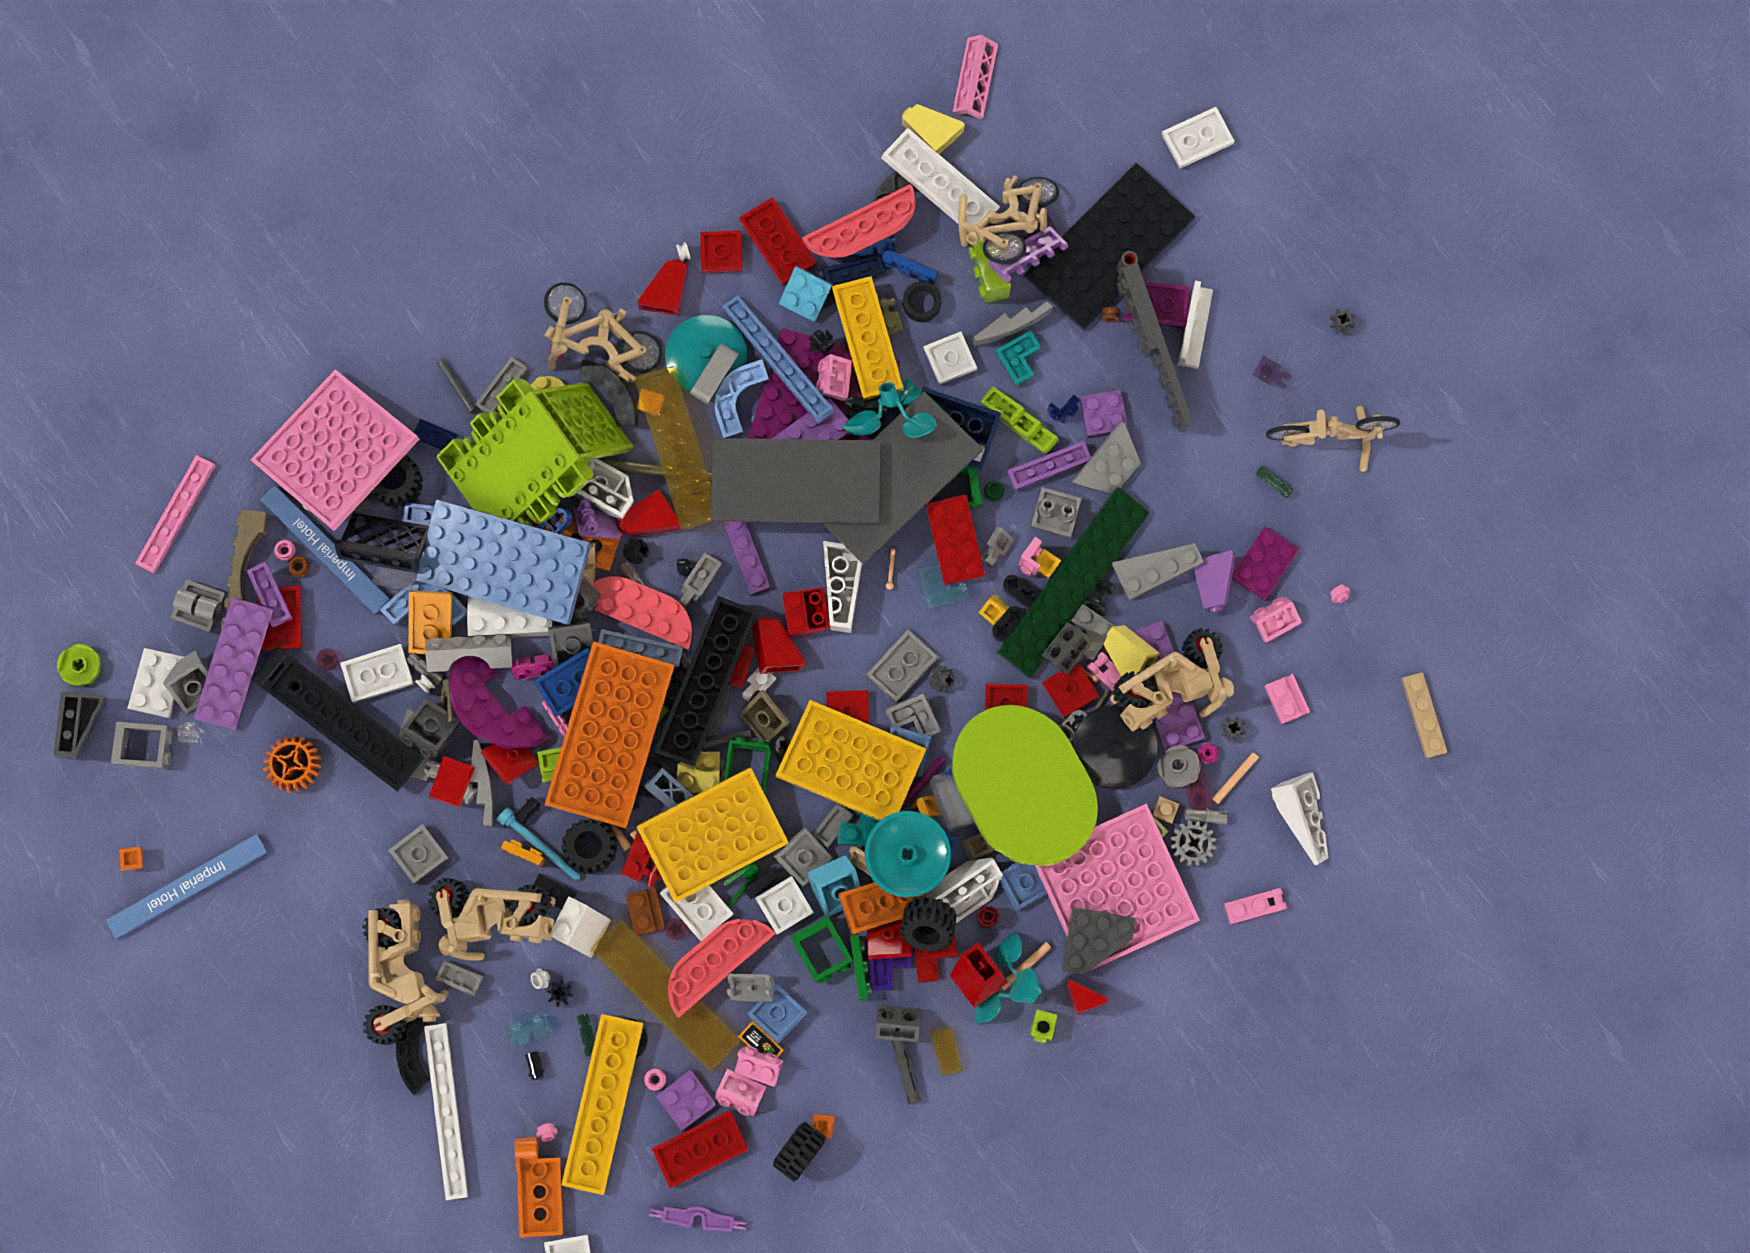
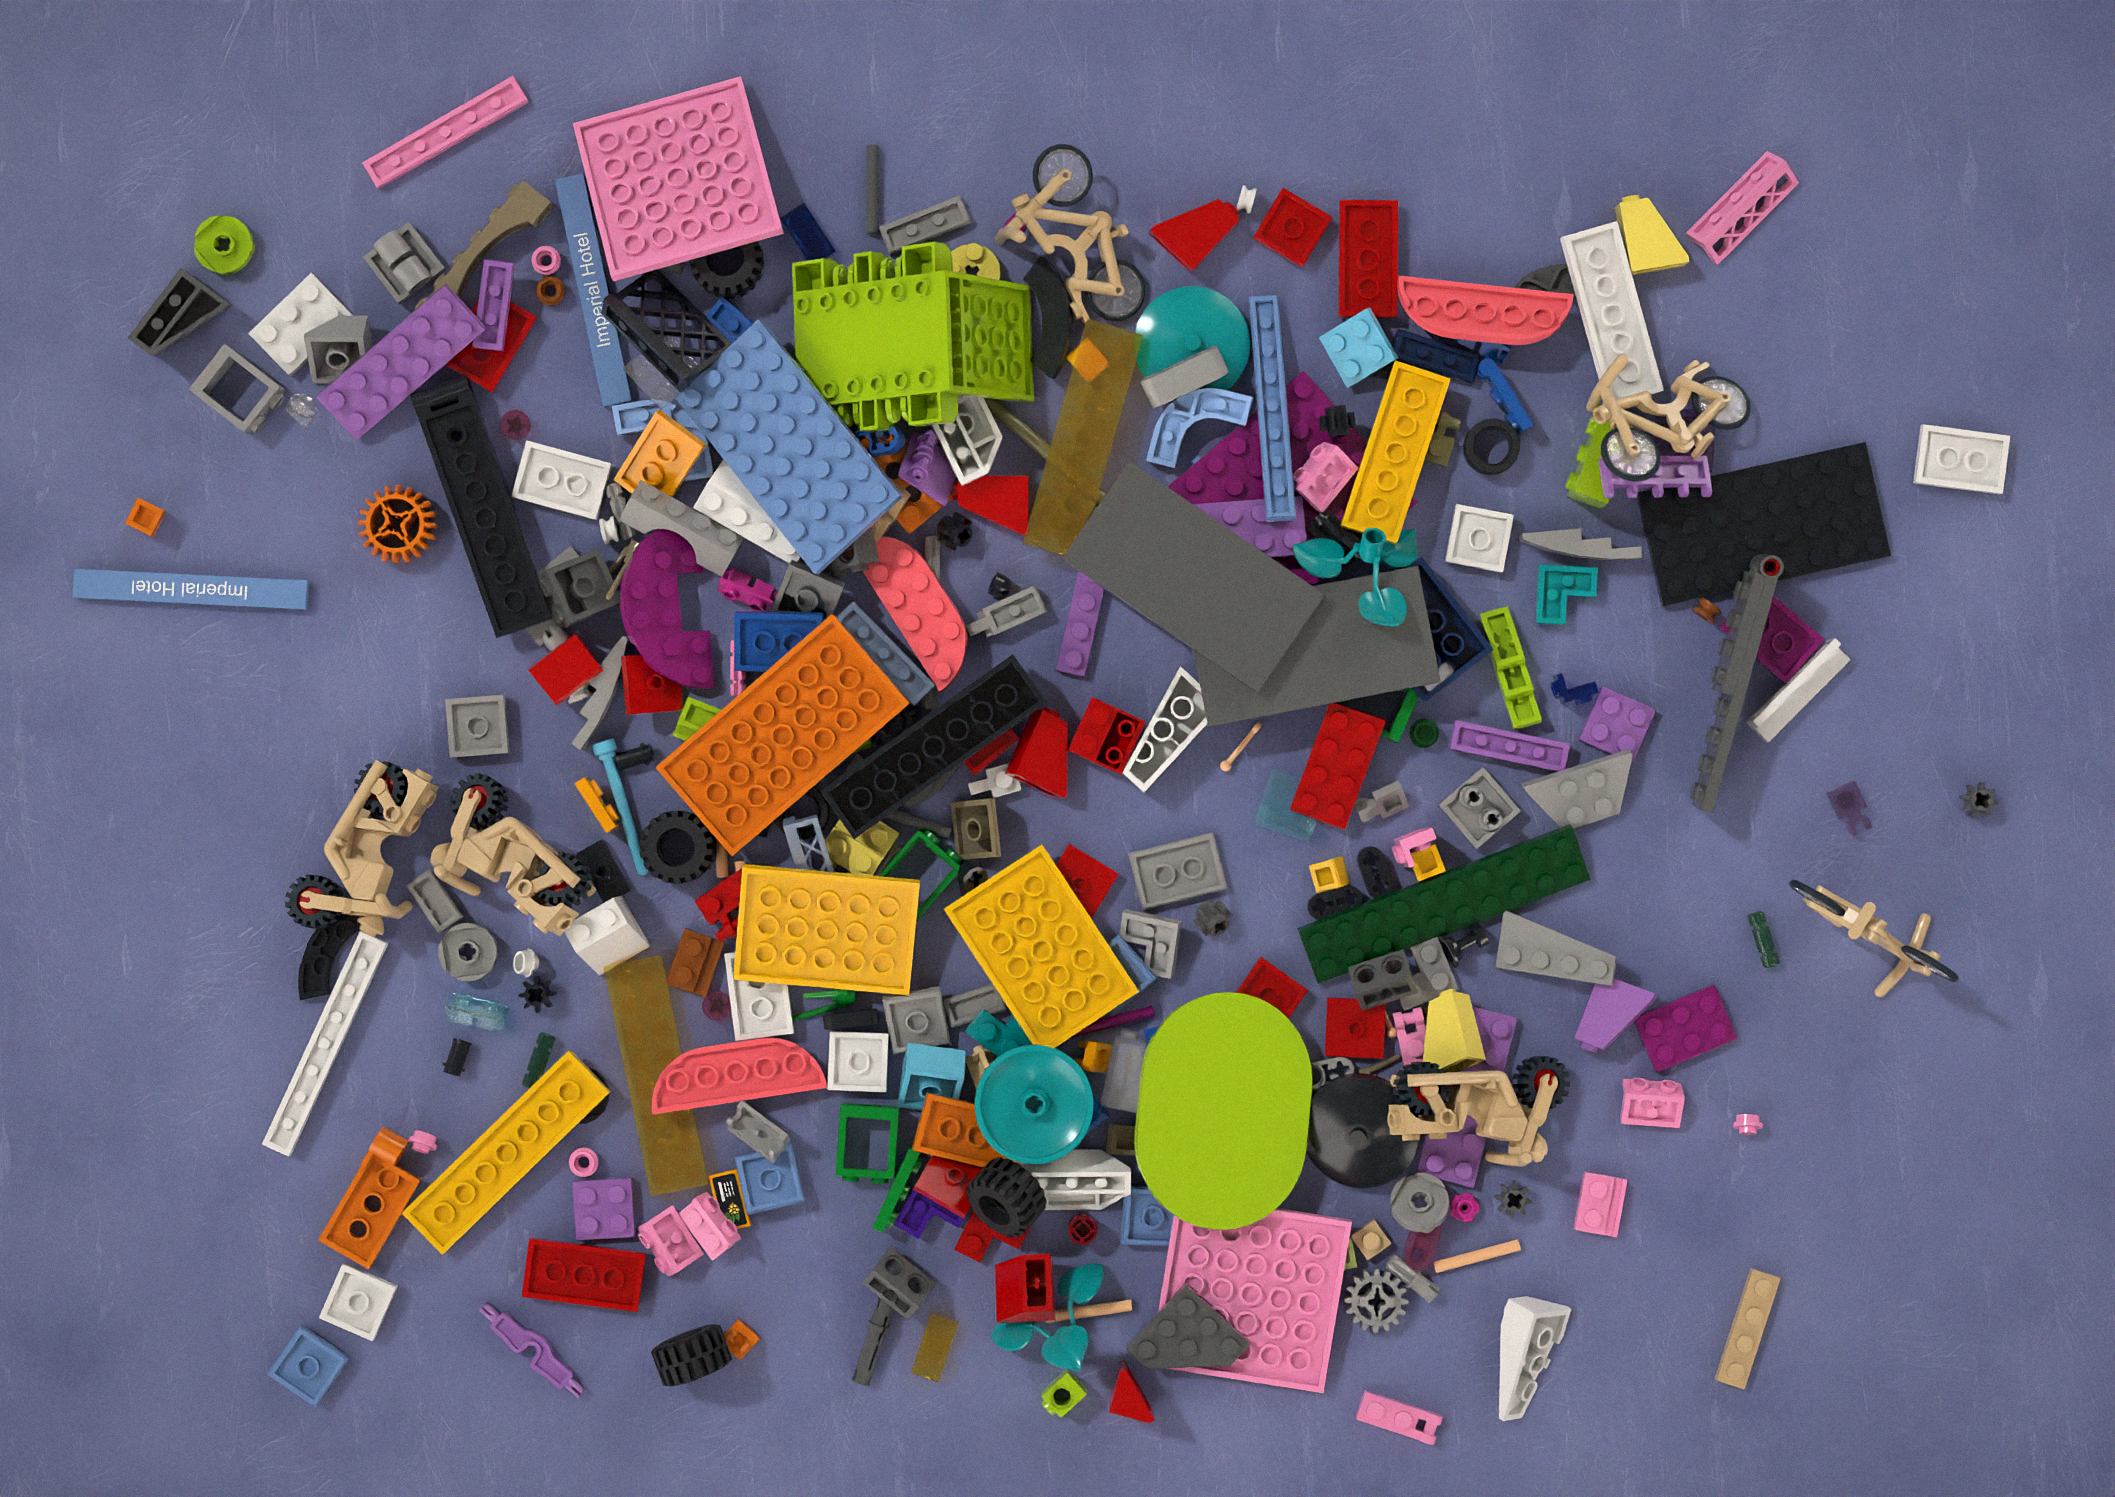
camera: 35 degrees right, 10 degrees up
(512, 997) = (458, 965): none -> light grey plate

